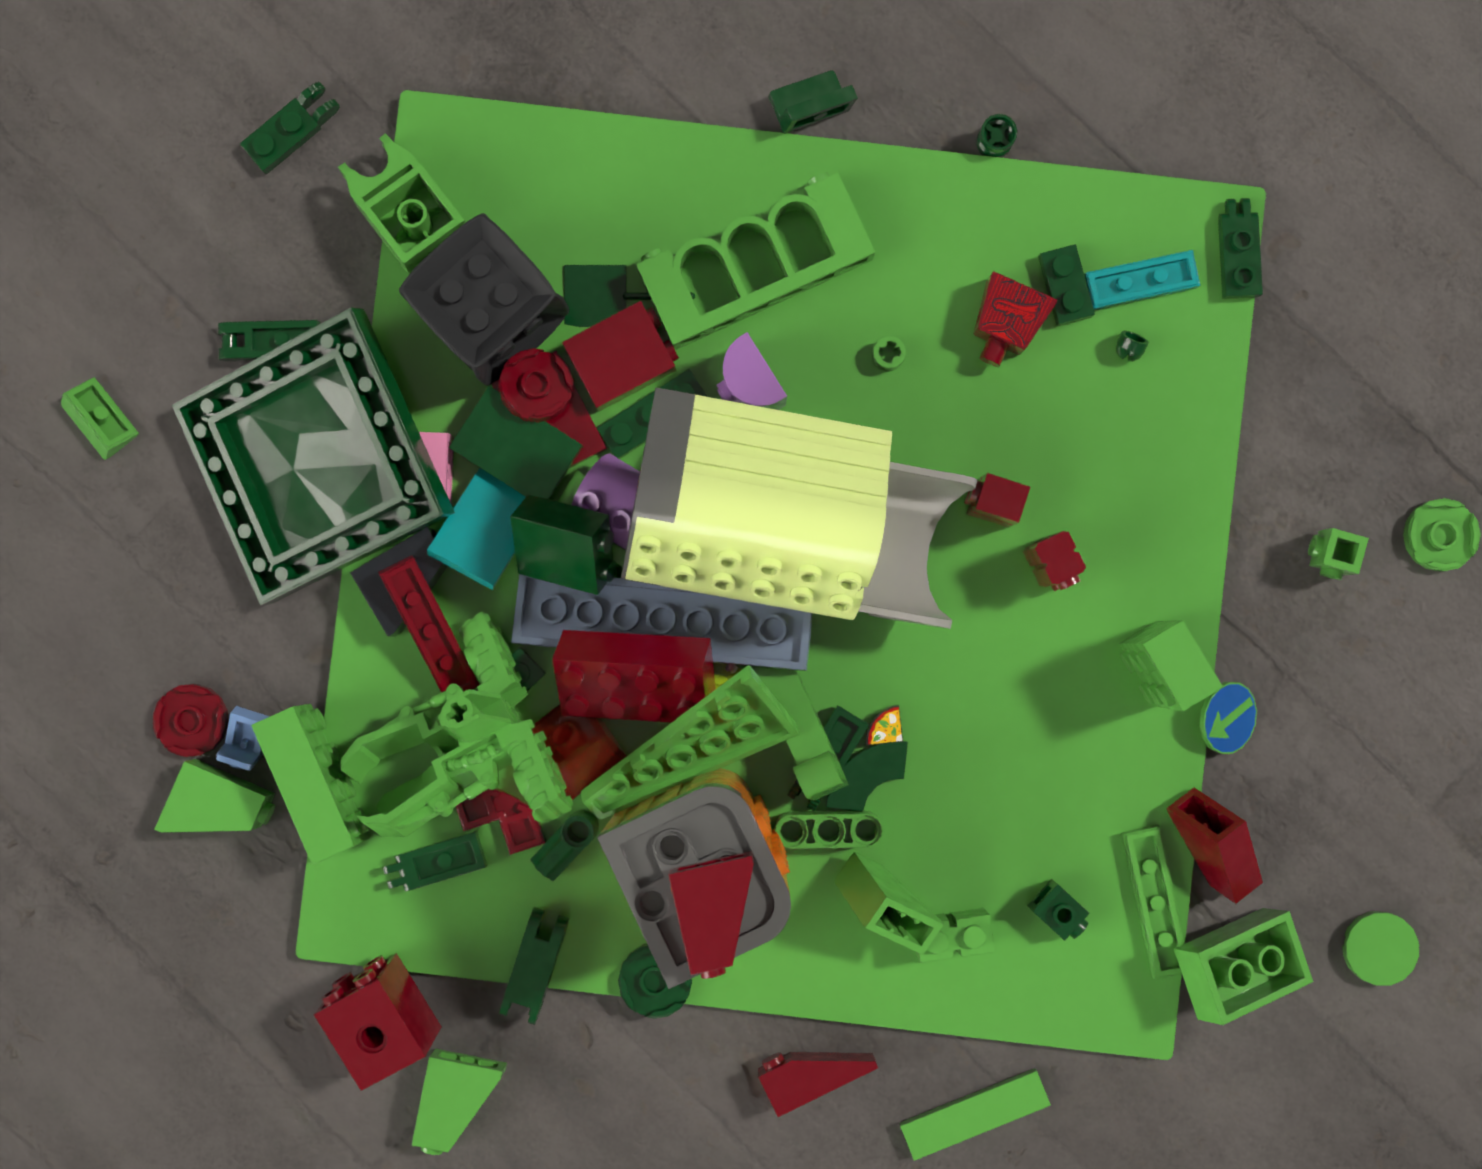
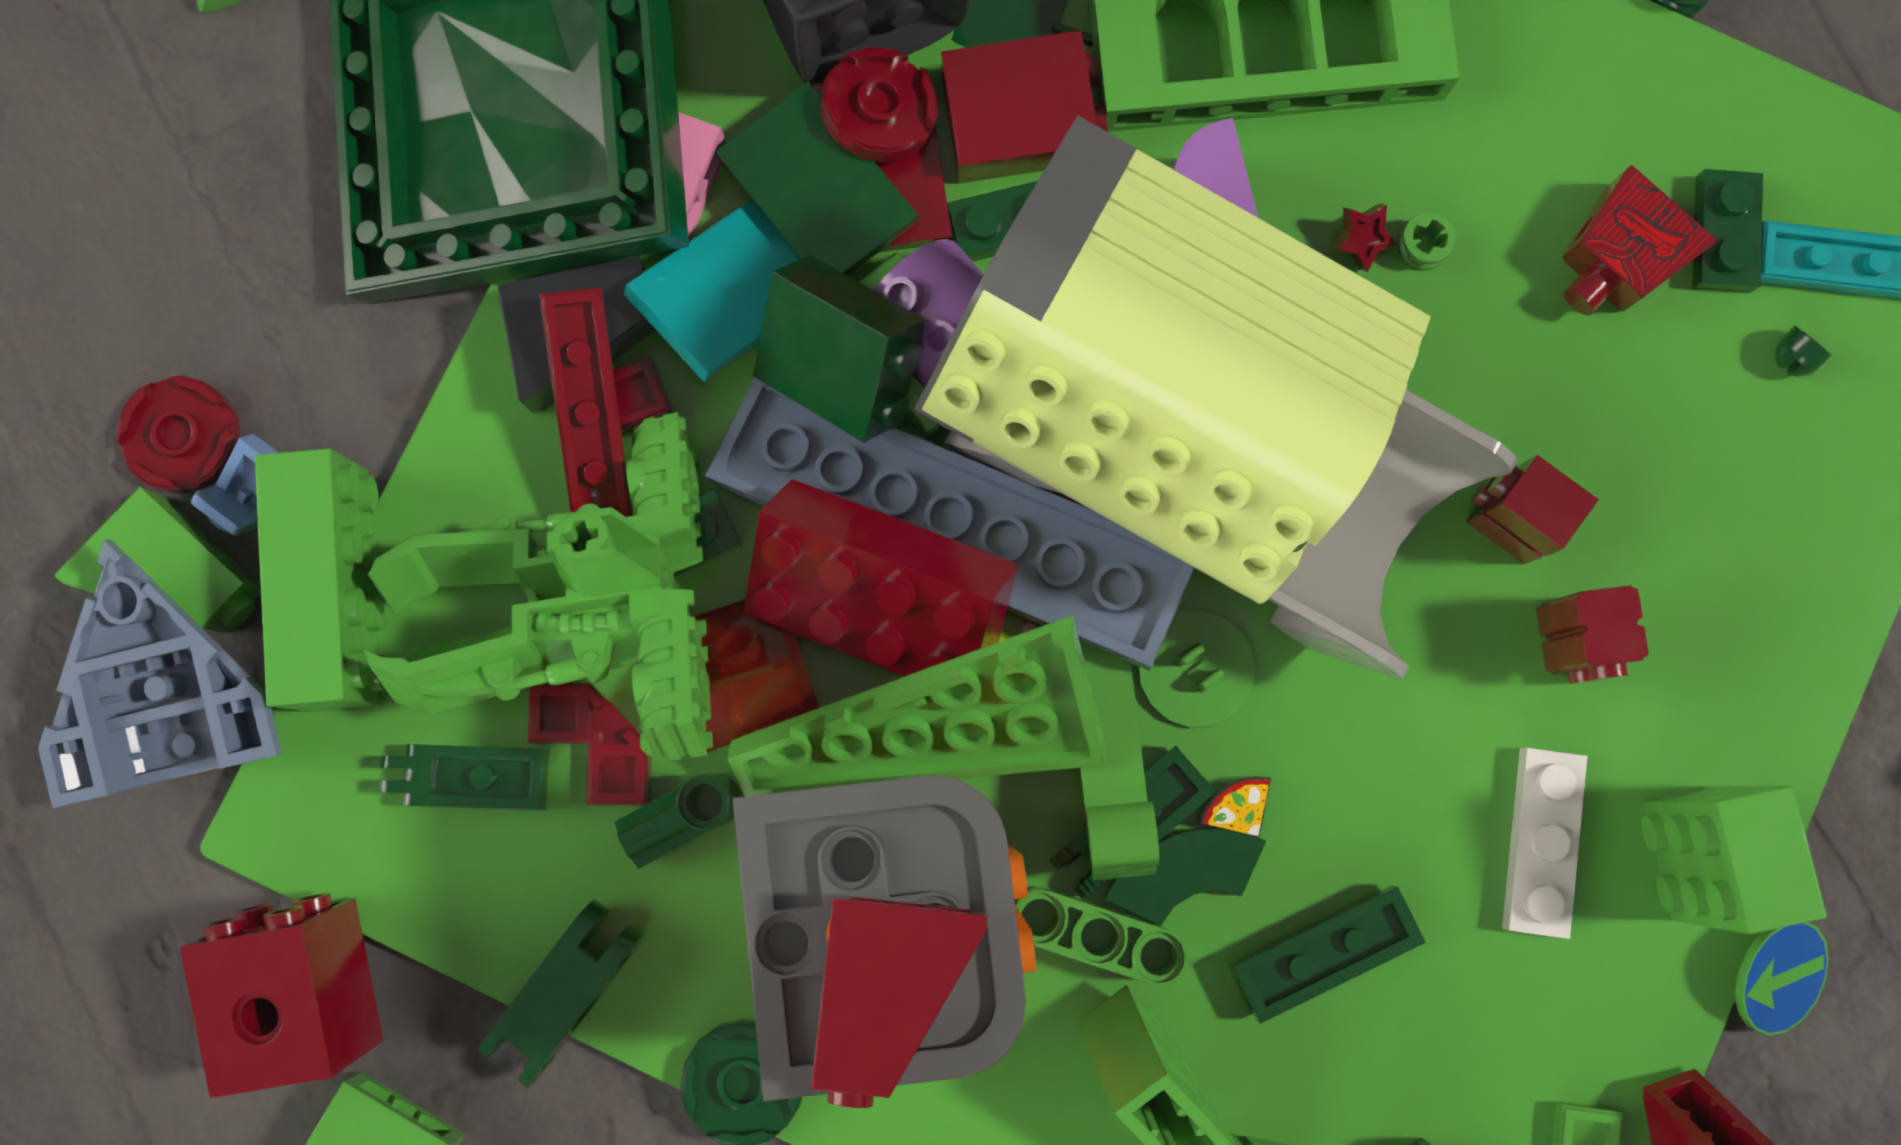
camera: 10 degrees right, 5 degrees down
(237, 880) = (147, 695): none -> sand blue wedge
(455, 605) = (639, 394): none -> dark red tile
(838, 655) = (1200, 671): none -> bright green piece
(850, 363) = (1364, 235): none -> dark red piece
(963, 794) = (1327, 953): none -> dark green plate
(1069, 687) = (1544, 843): none -> white plate

